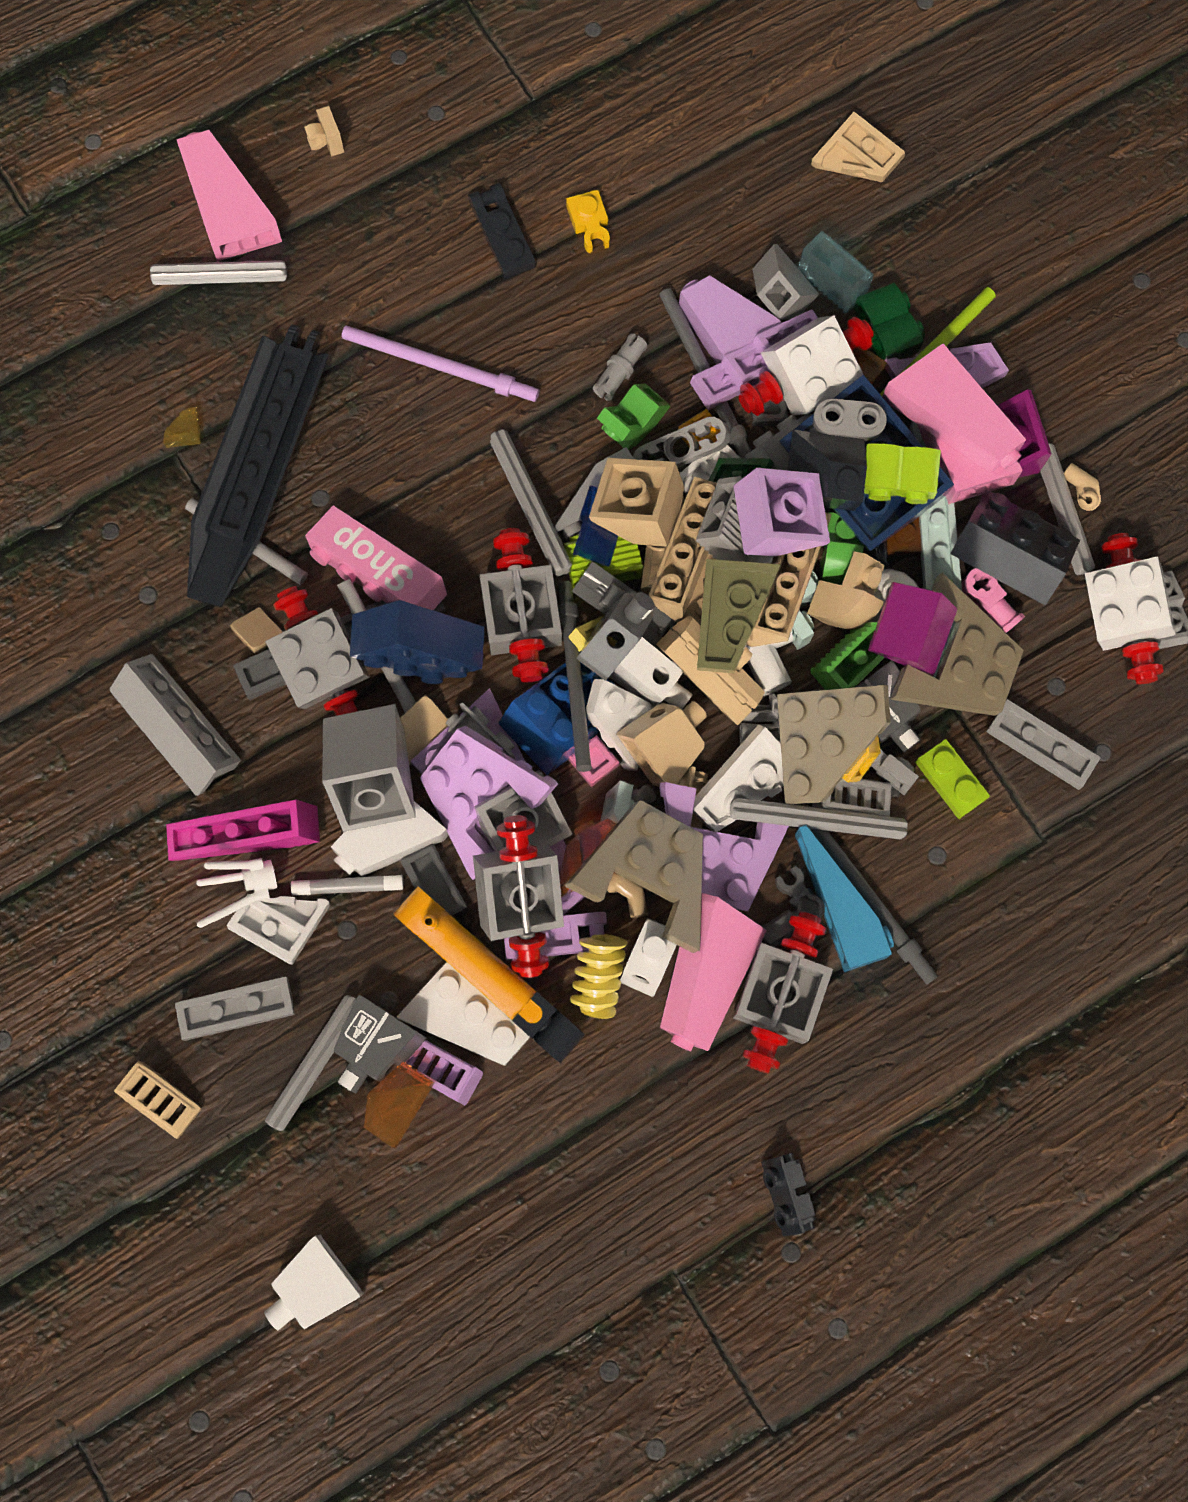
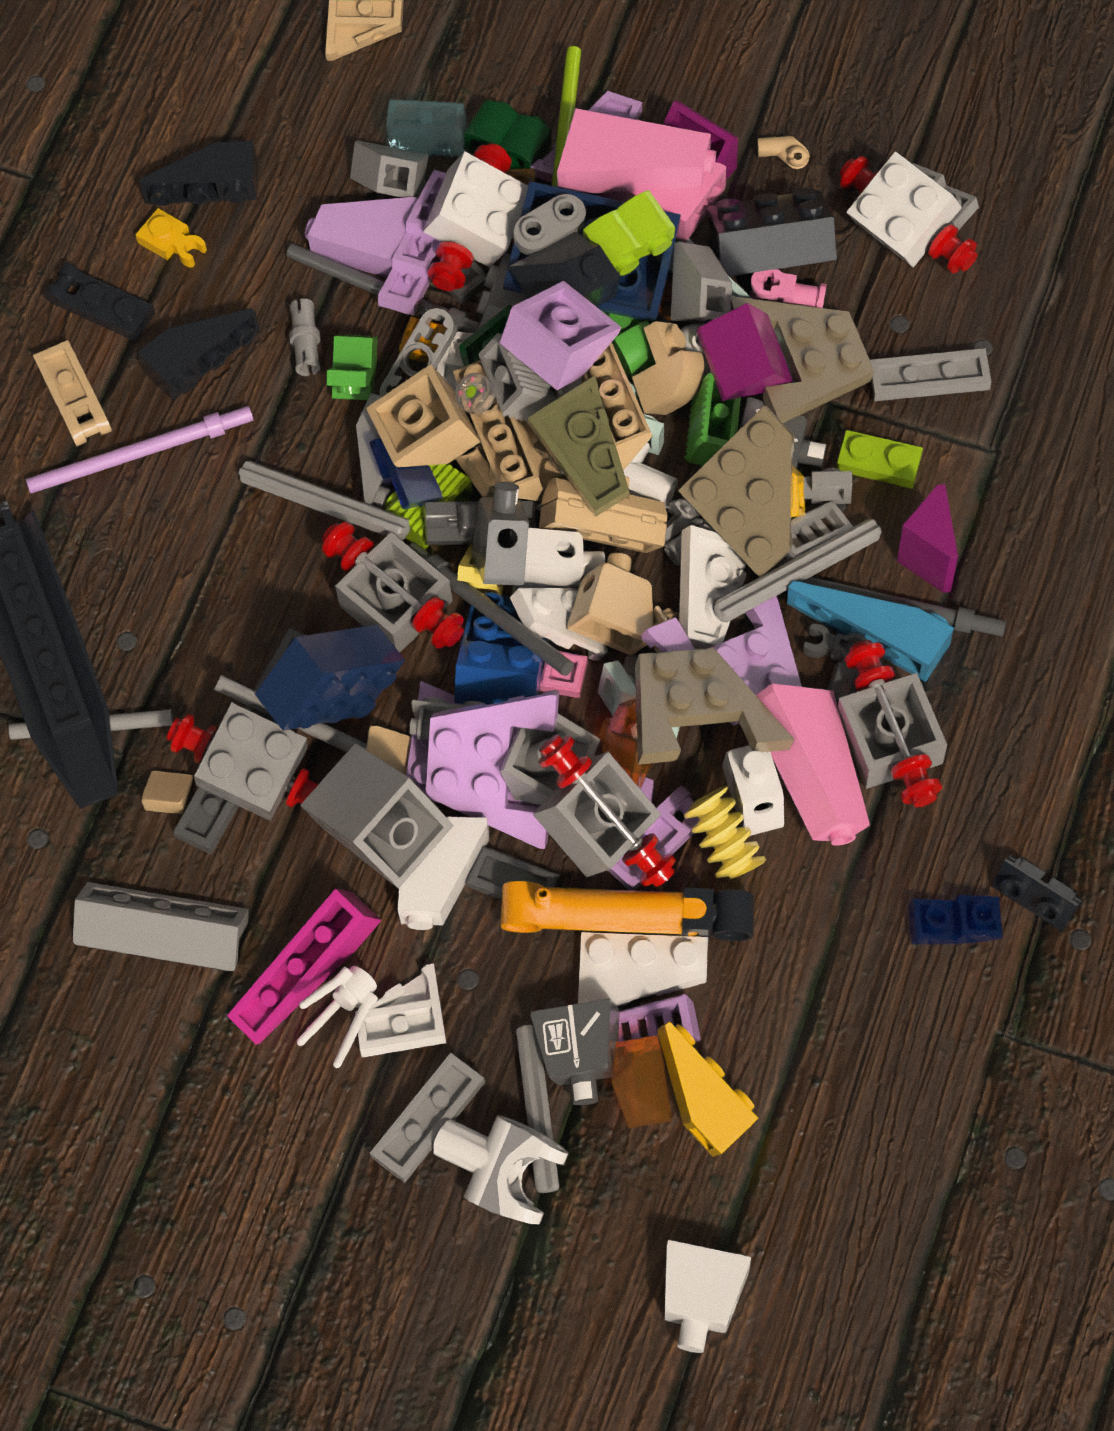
camera: 30 degrees left, 10 degrees down
(137, 1101) = (408, 1233): tan slope -> none
(250, 1085) = (498, 1163): none -> white connector
(347, 885) = (436, 940): light grey bar -> none
(373, 562) = (229, 647): bright pink brick -> none
(424, 1163) = (704, 1099): none -> yellow slope
(427, 284) = (71, 392): none -> tan plate
(529, 316) = (192, 350): none -> black slope
(633, 893) = (697, 755): tan arm -> none
(654, 191) = (210, 175): none -> black slope
(690, 508) = (475, 393): none -> clear tile
(713, 1167) = (955, 922): none -> clear blue slope
(926, 547) = (699, 285): none -> light grey slope
(930, 873) = (929, 541): none -> magenta slope
(1066, 511) = (784, 178): light grey axle -> none

